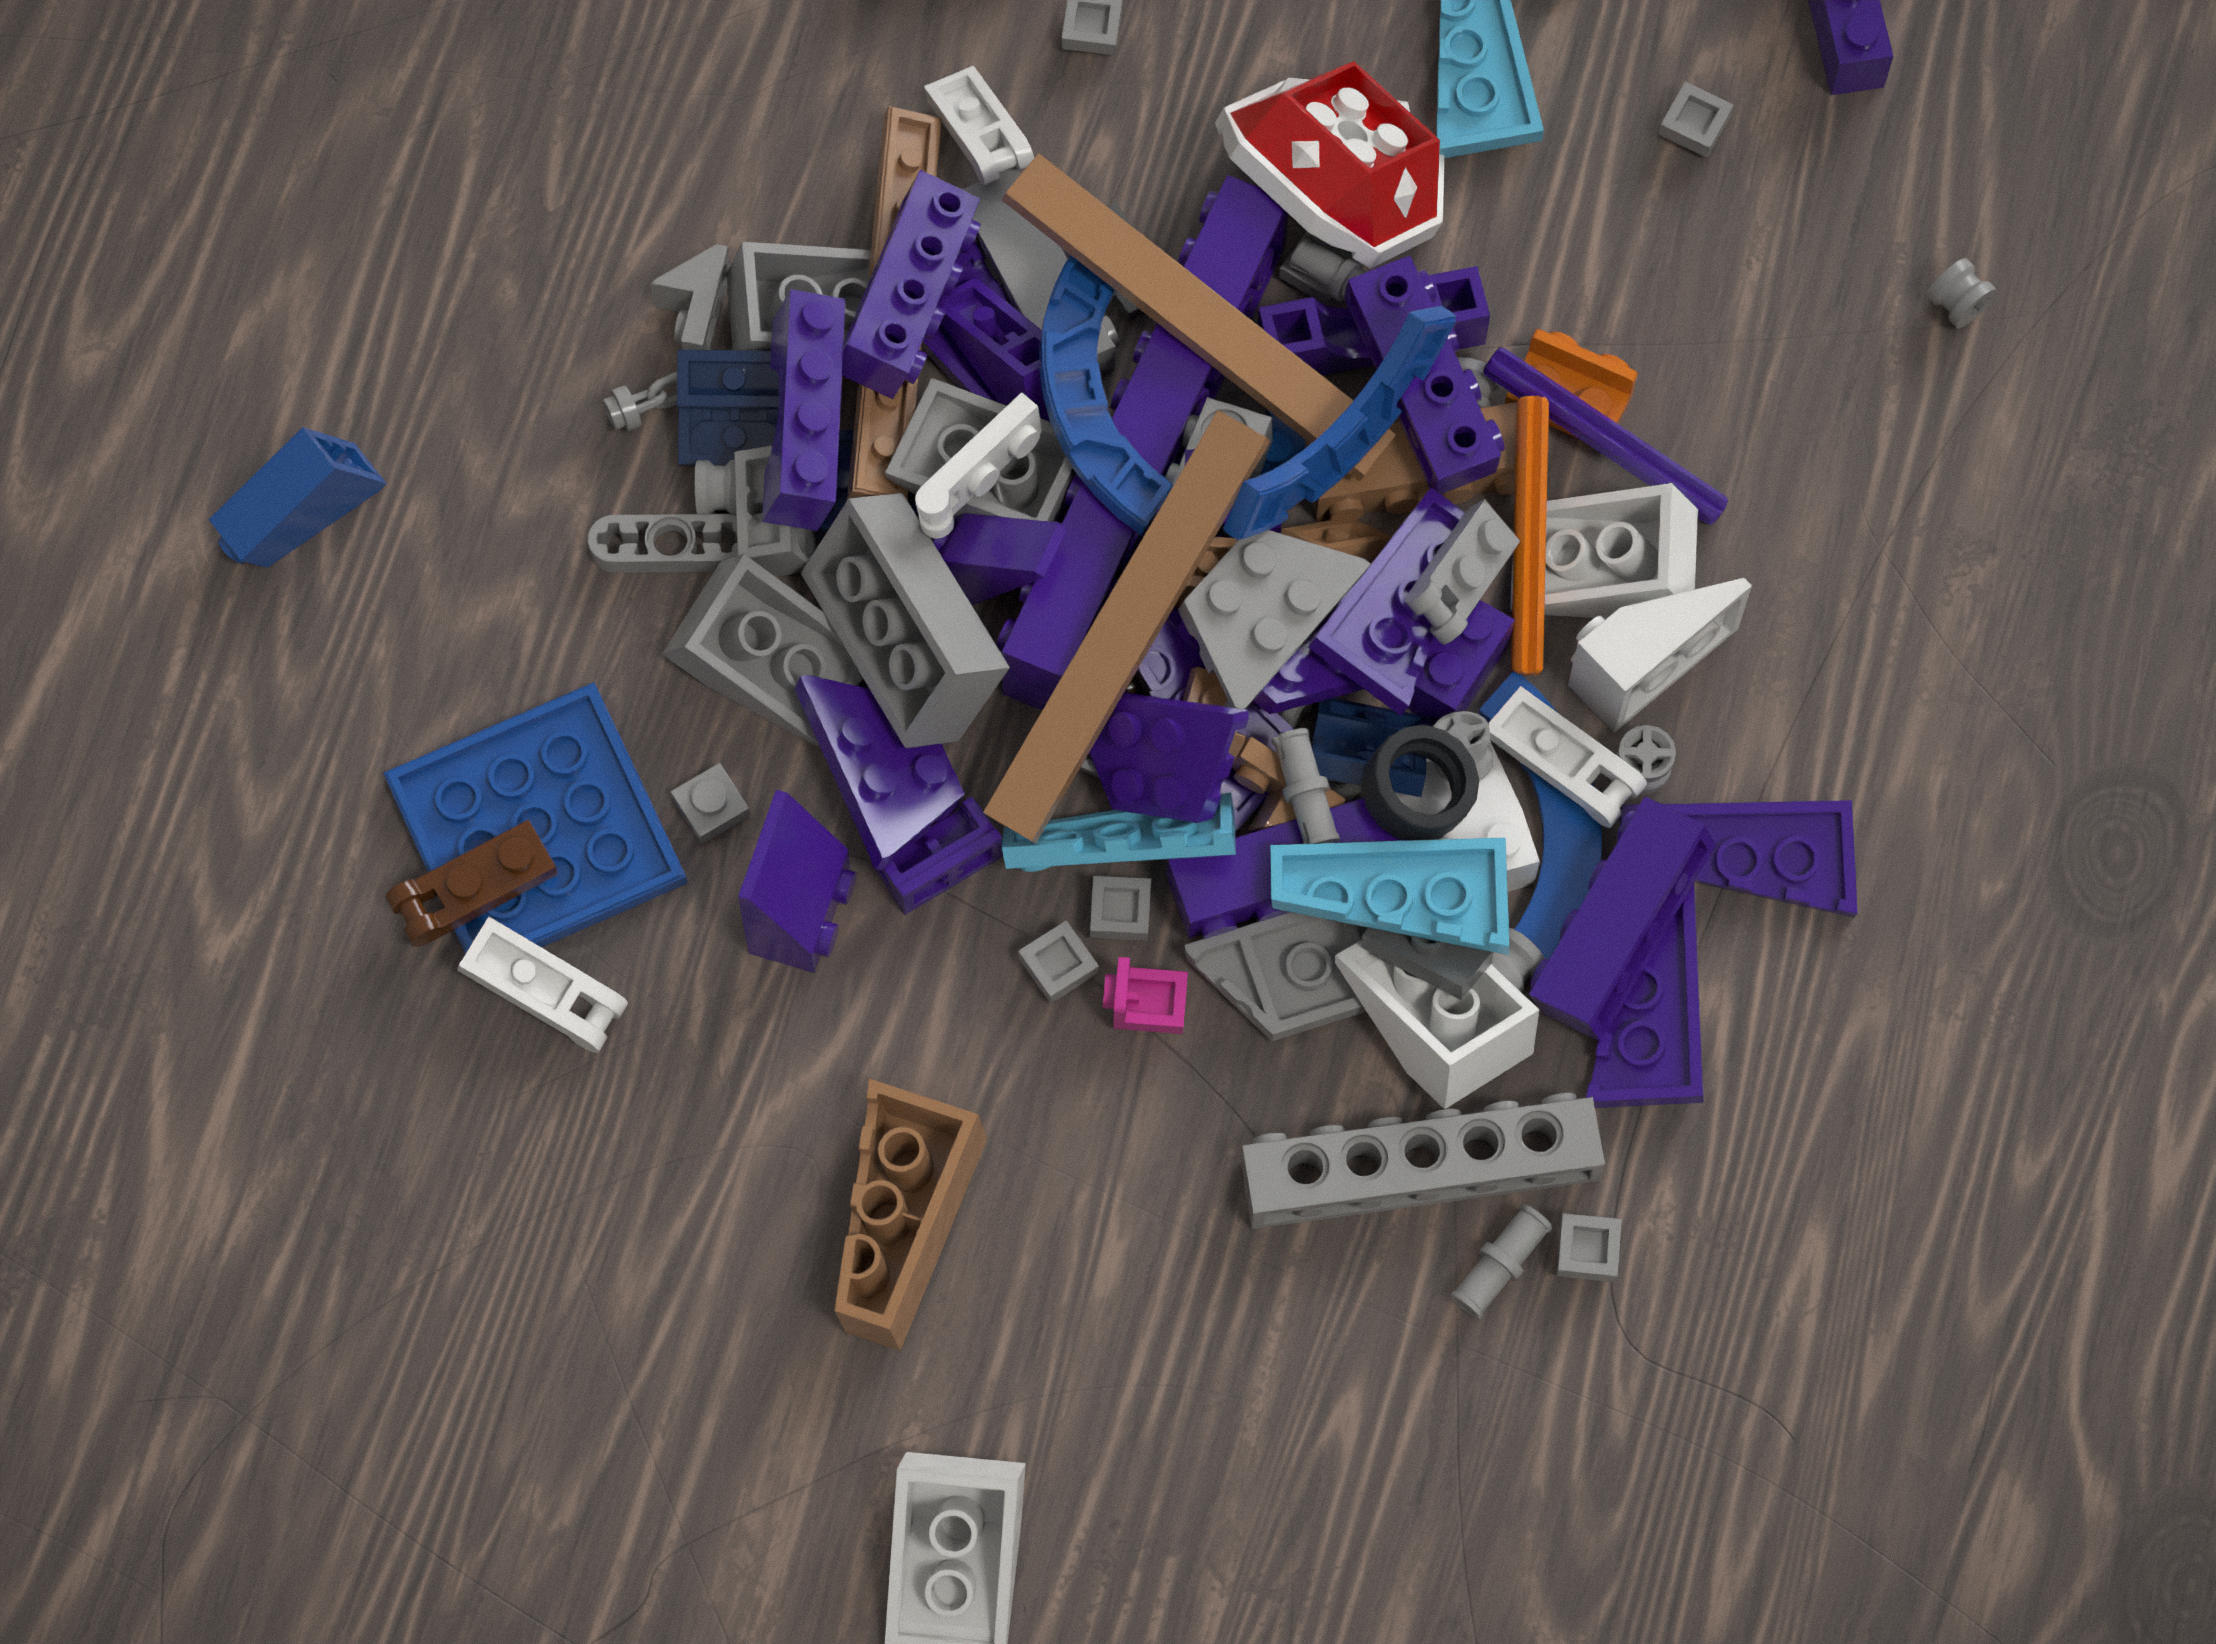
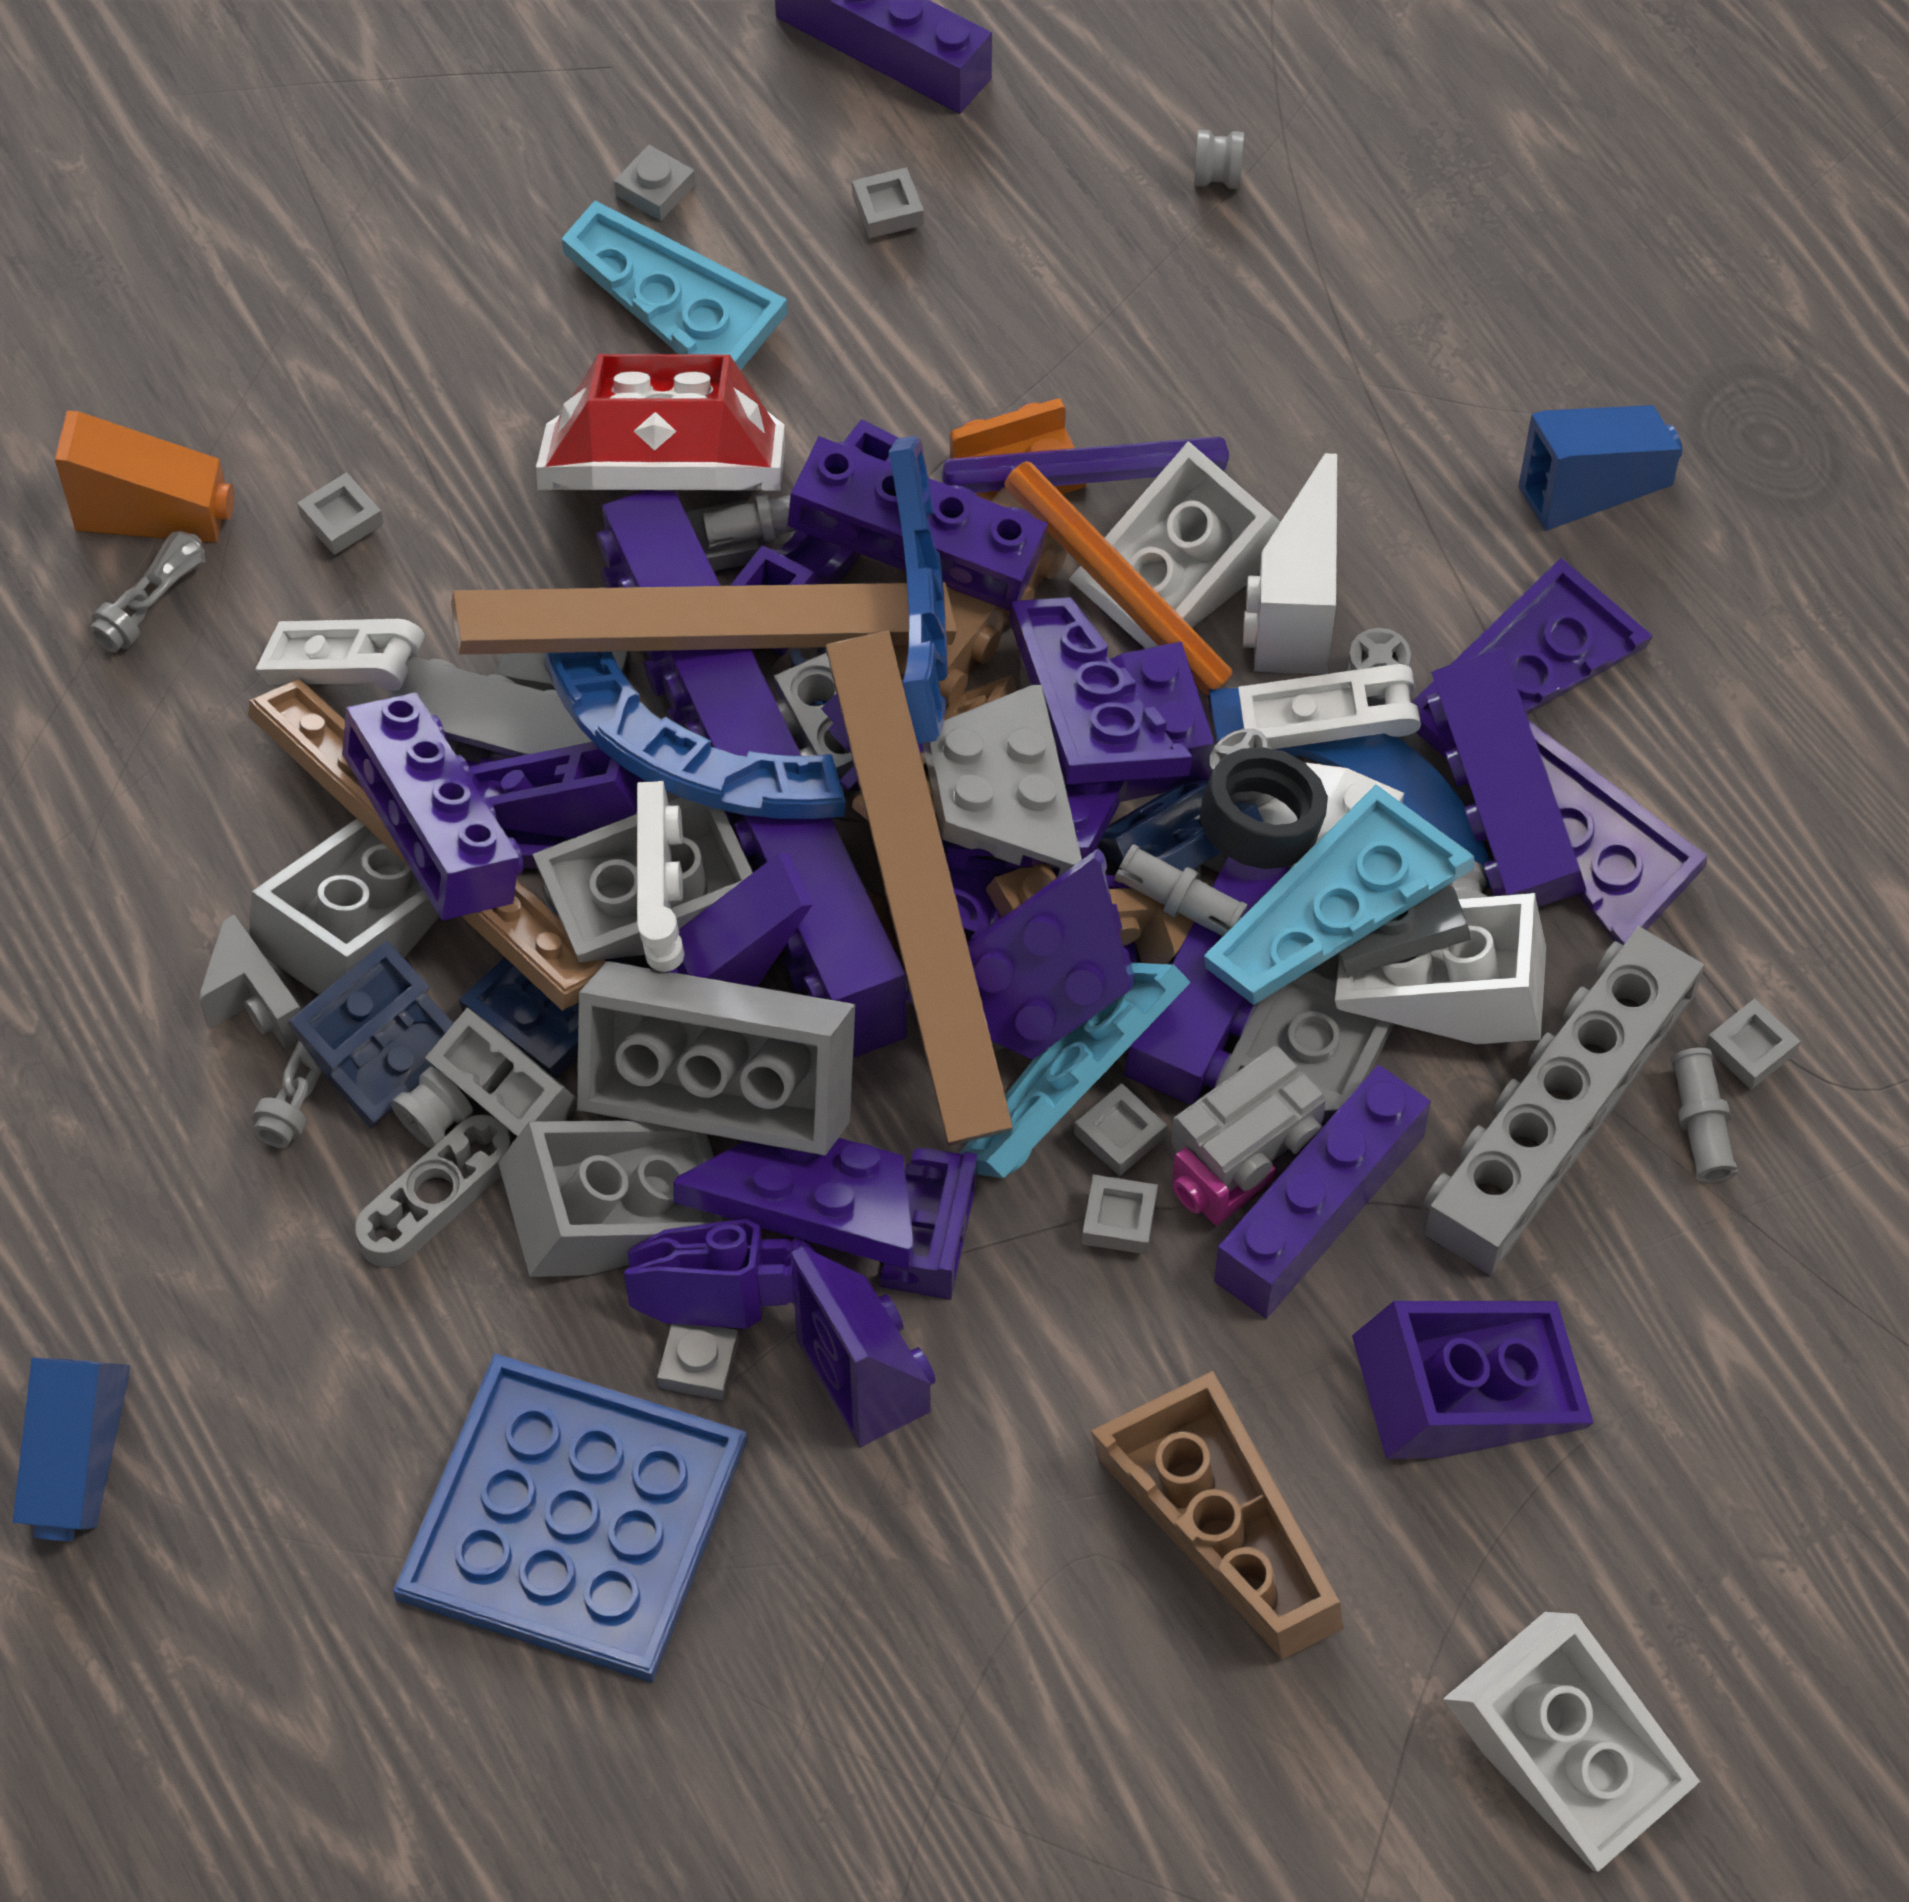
camera: 45 degrees left, 10 degrees down
(472, 884) = (577, 1600): reddish brown plate -> none
(541, 984) = (726, 1625): white plate -> none
(766, 752) = (710, 1274): none -> dark purple hinge
(804, 452) = (511, 1002): dark purple arch -> none
(1155, 1278) = (1469, 1376): none -> dark purple slope
(1188, 982) = (1251, 1120): none -> light grey brick
(1196, 1070) = (1321, 1191): none -> dark purple brick
(1462, 571) = (1111, 633): light grey plate -> none
(1963, 756) = (1595, 460): none -> blue slope

